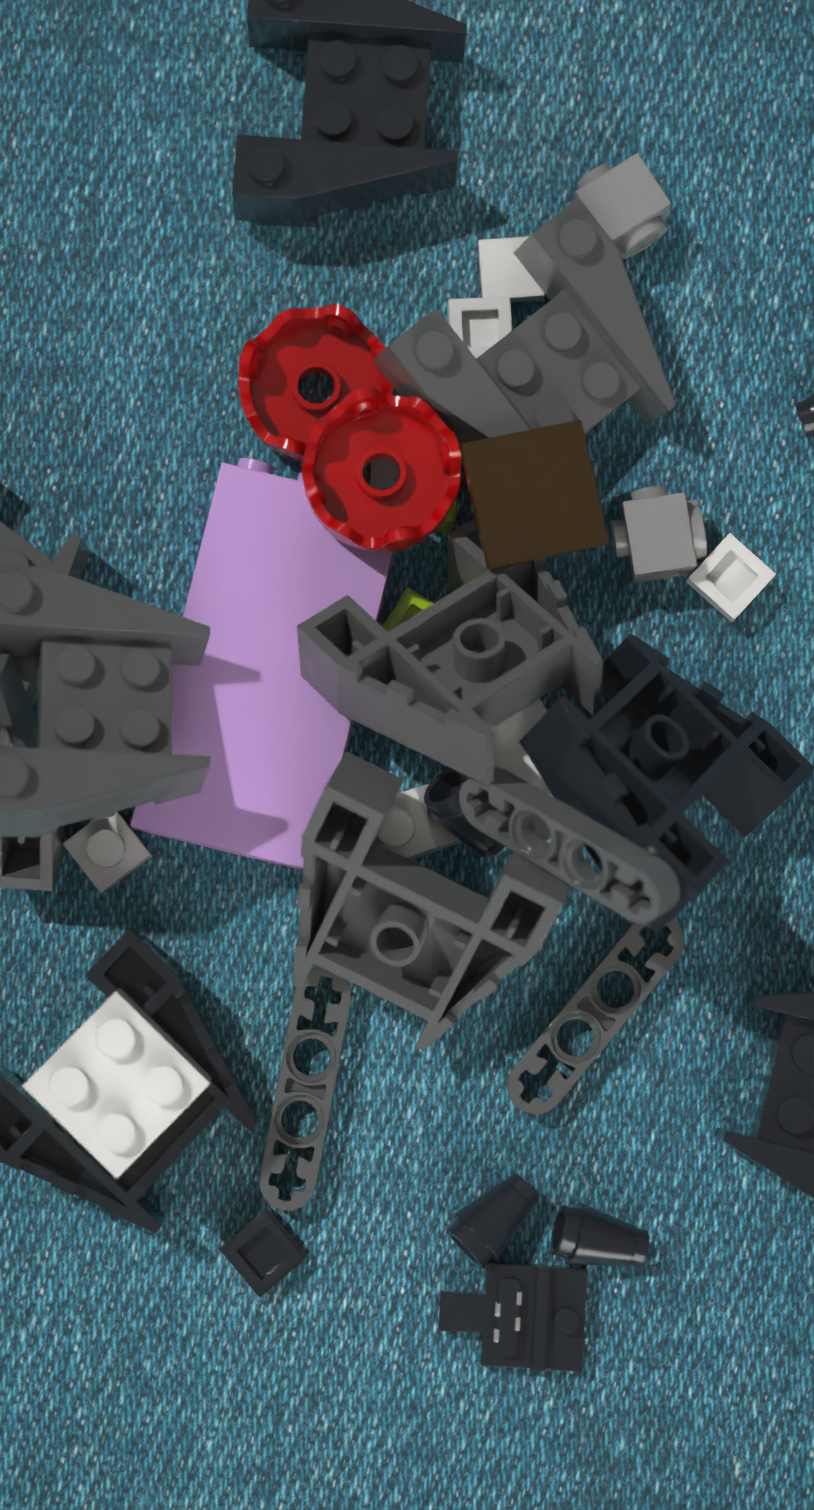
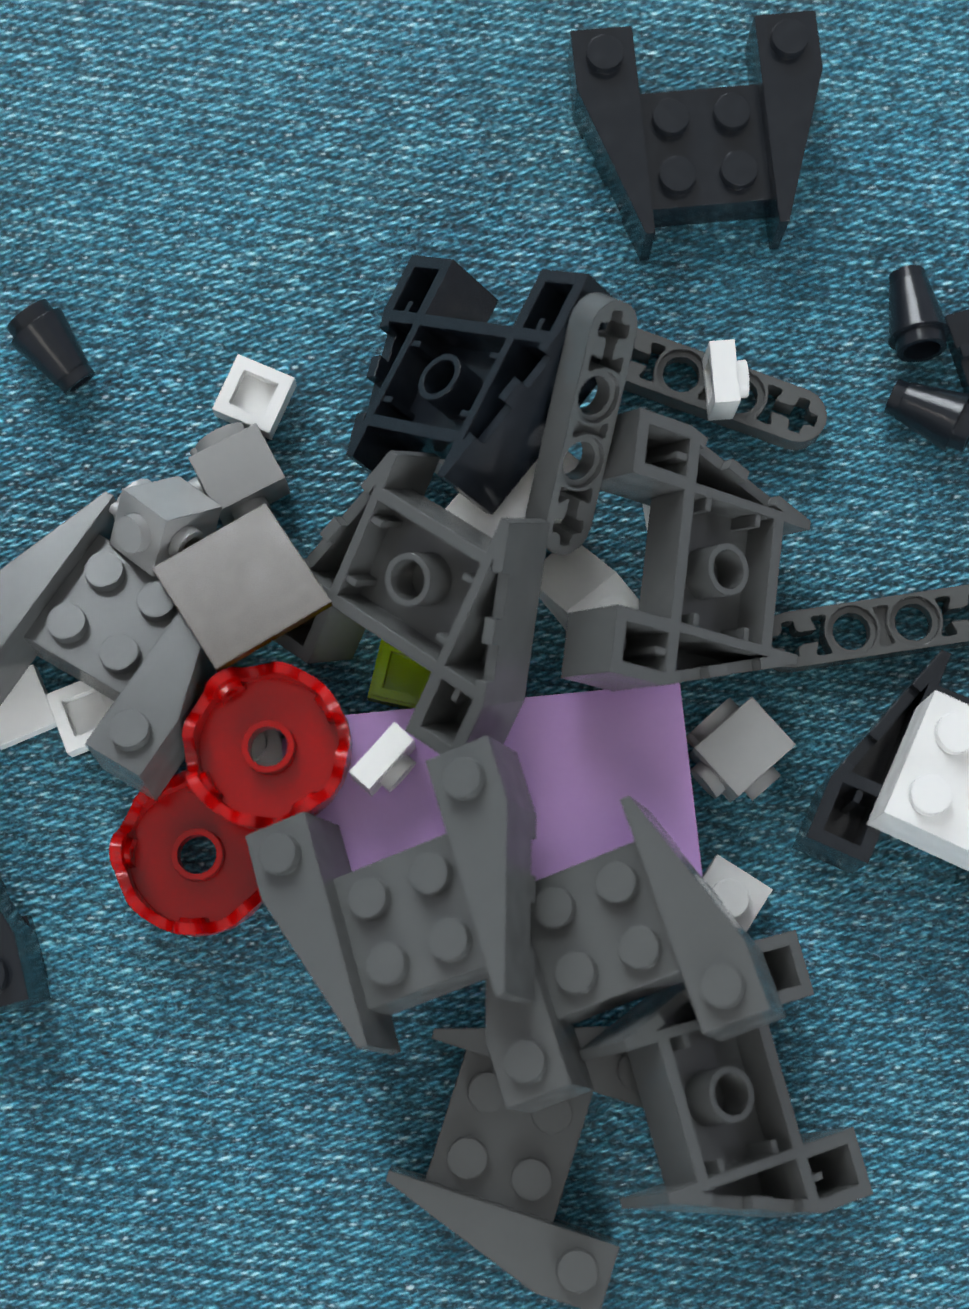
camera: 115 degrees left, 5 degrees down
(173, 545) = (418, 917): none -> dark grey wedge
(236, 905) = (737, 750): none -> light grey brick
(329, 571) = (386, 761): none -> white plate
(445, 810) = (574, 572): black cone -> none
(588, 1021) = (724, 379): none -> white plate
(630, 448) = (160, 520): none -> light grey brick

